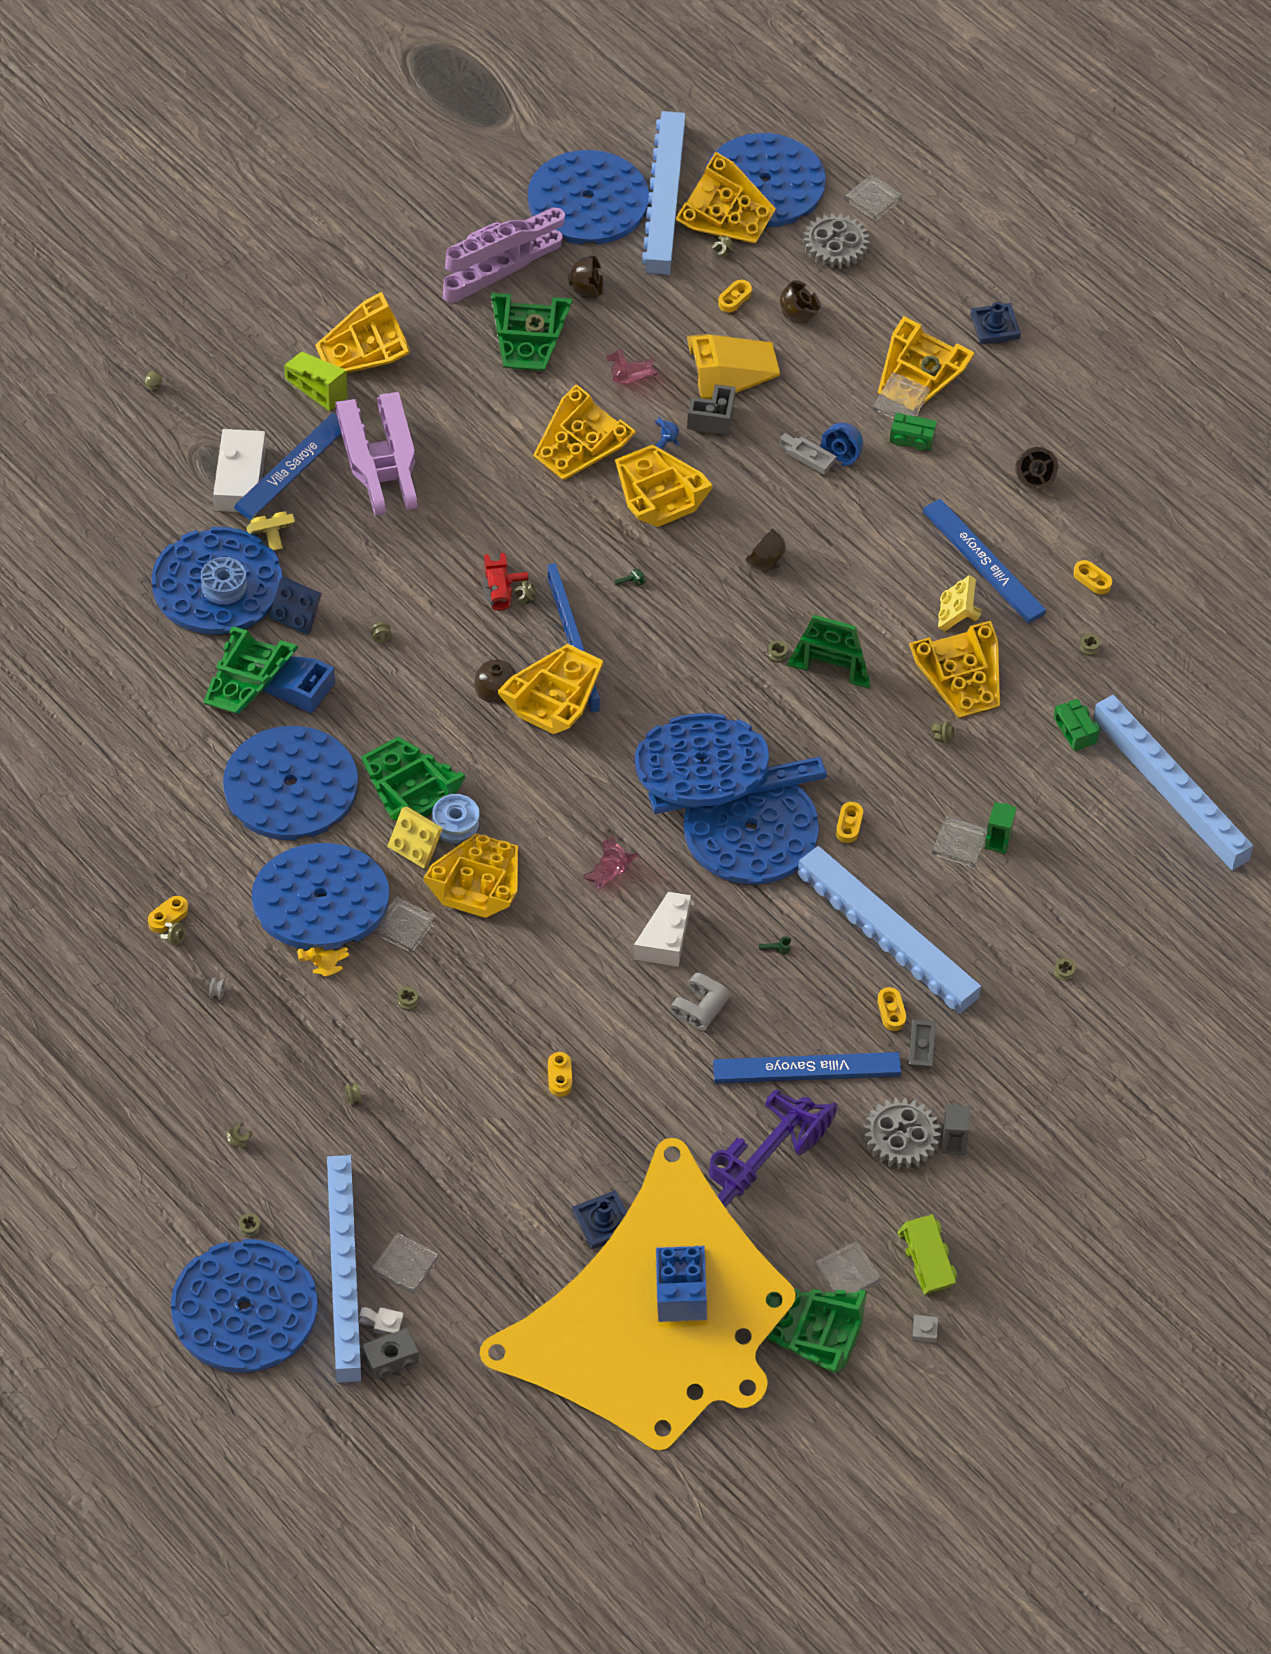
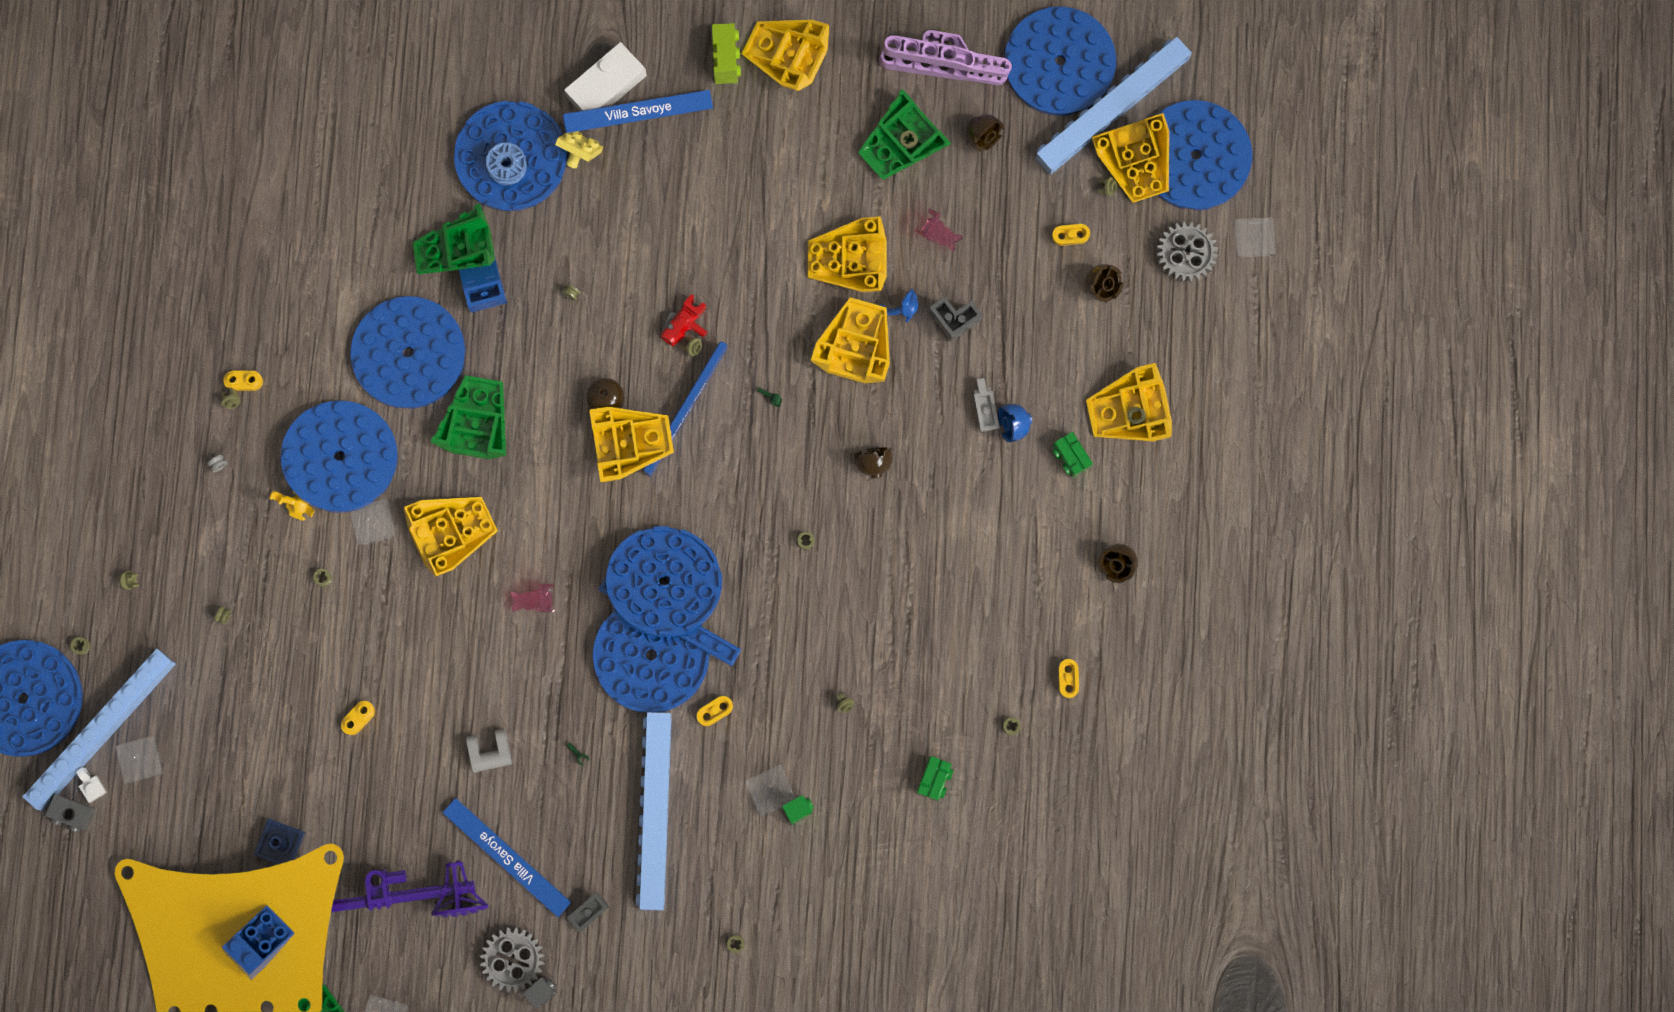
camera: 45 degrees right, 25 degrees up
(295, 605) = (534, 223): dark blue plate -> none
(372, 461) = (708, 158): lavender beam -> none
(415, 837) = (435, 469): light yellow plate -> none
(457, 817) = (468, 468): light blue wheel -> none
(665, 932) = (518, 682): white wedge -> none
(731, 362) = (1010, 286): yellow wedge -> none
(834, 644) = (830, 583): green wedge -> none
(892, 1010) = (598, 868): yellow plate -> none
(901, 396) = (1092, 421): clear plate -> none
(958, 604) = (952, 619): light yellow plate -> none
(963, 668) = (905, 667): yellow wedge -> none
(984, 561) = (1013, 597): blue tile -> none
(995, 323) = (1223, 419): dark blue plate -> none
(1173, 782) = (947, 880): light blue brick -> none

